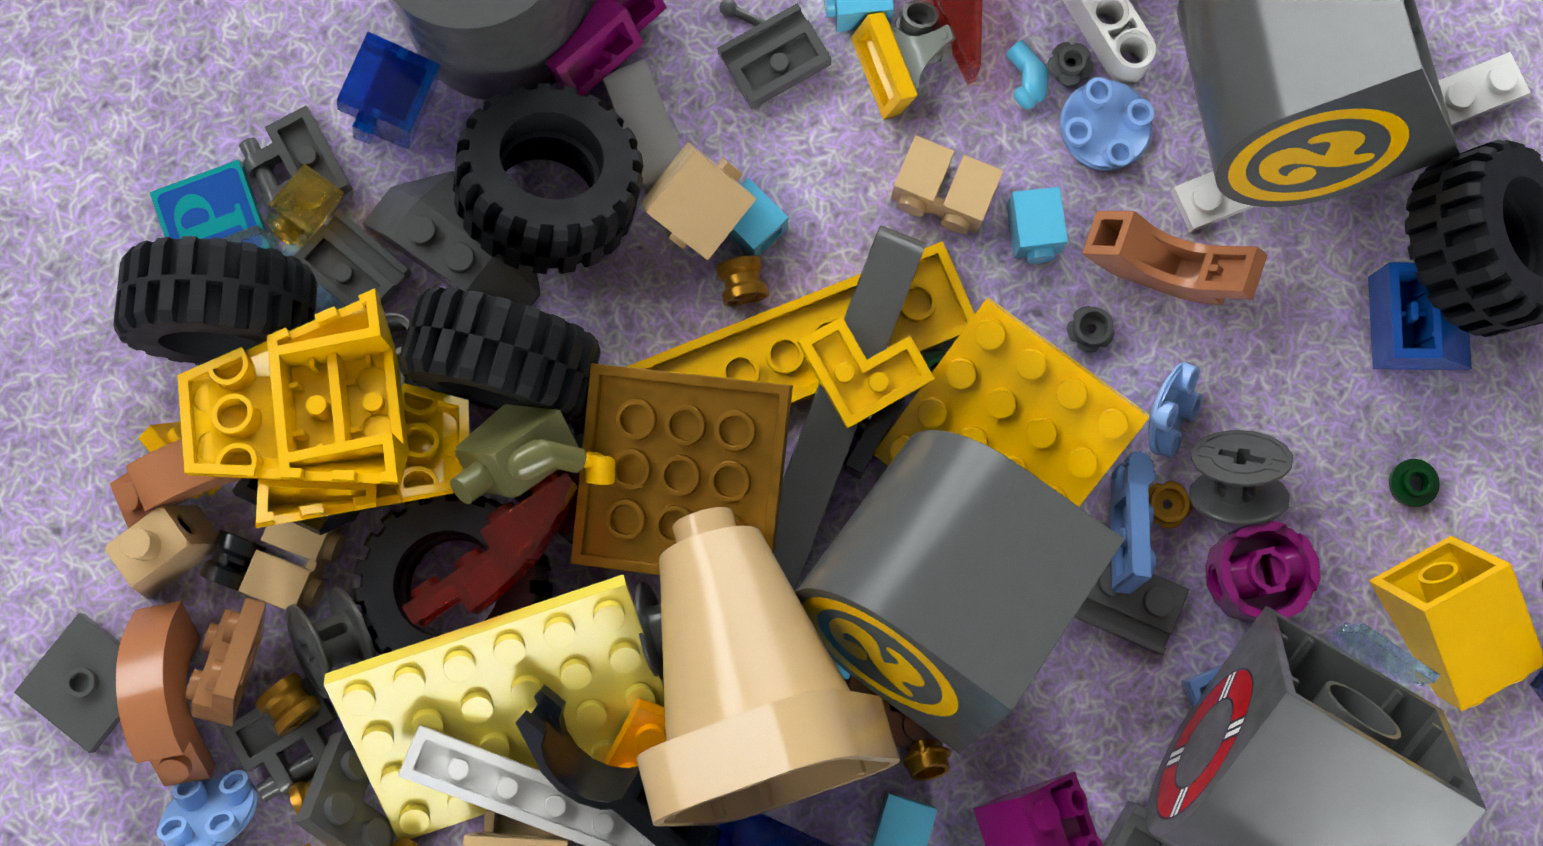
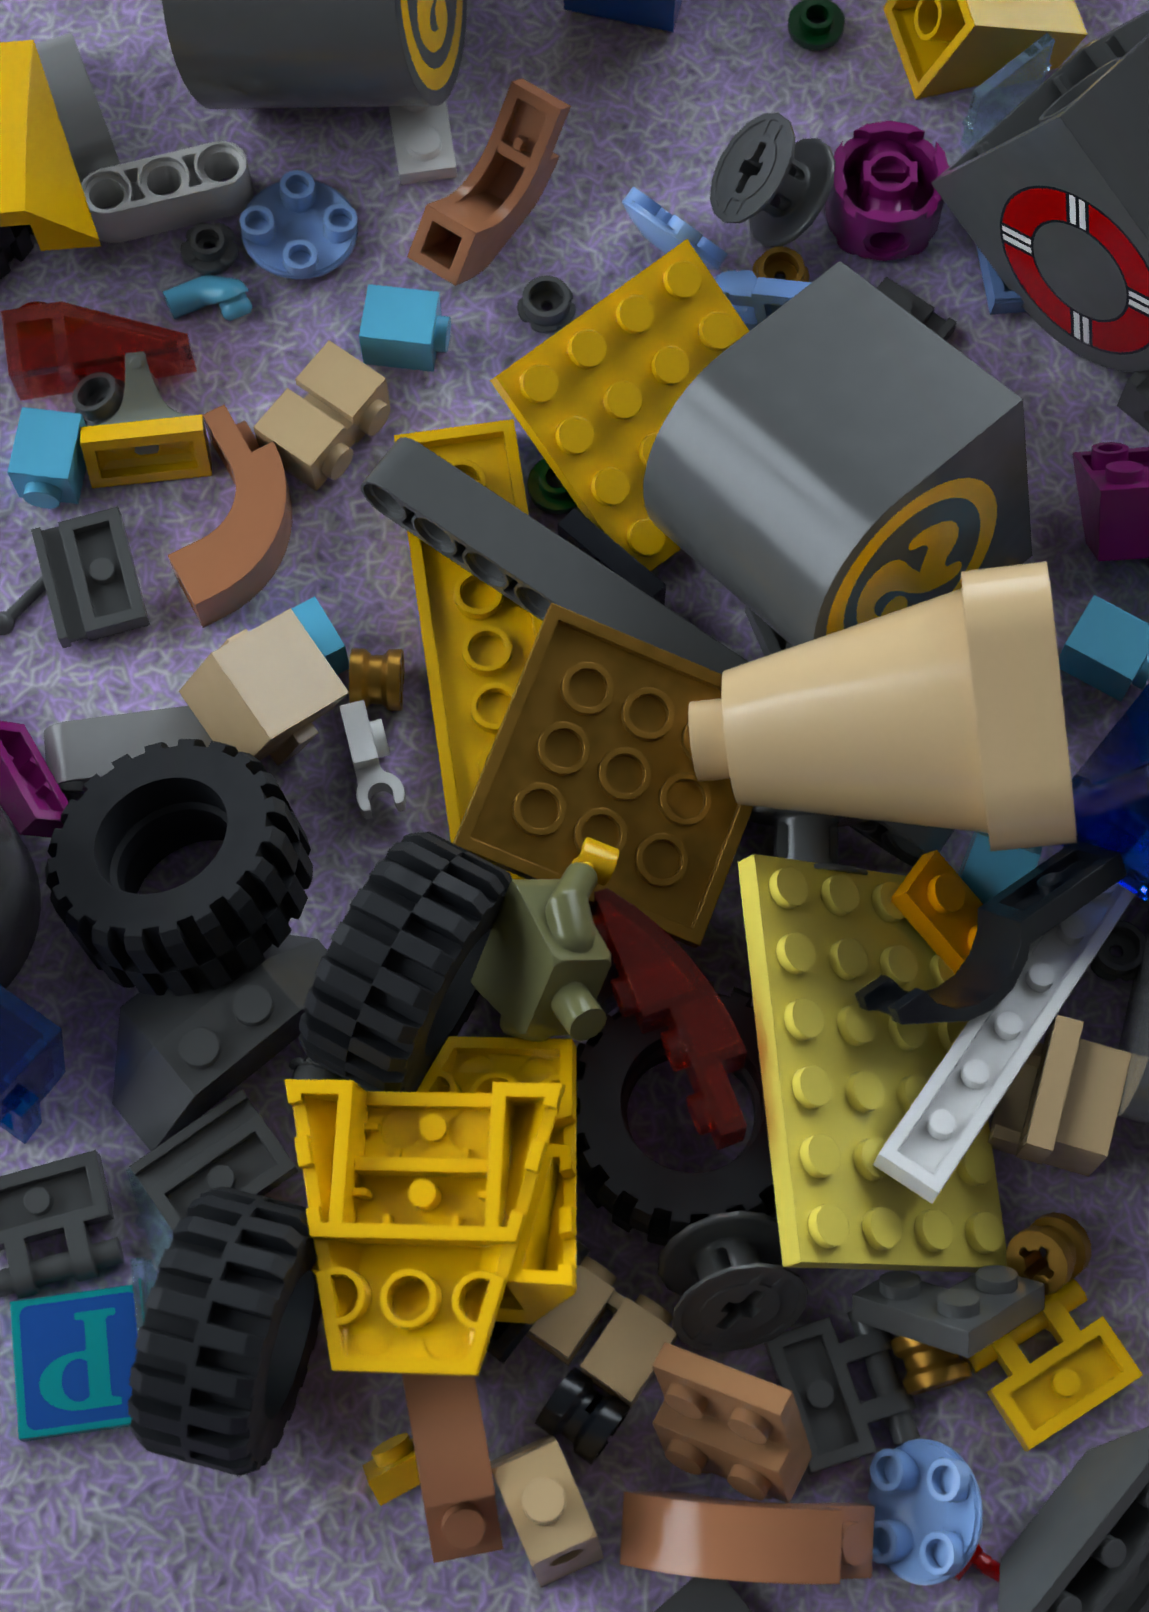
camera: 75 degrees left, 10 degrees down
(287, 704) = (802, 1358): pearl gold wheel -> none
(302, 206) = (114, 1211): clear yellow bracket -> none
(687, 286) = (367, 744): none -> white plate
(842, 162) = (249, 545): none -> nougat arch
(858, 384) = (559, 546): yellow plate -> none

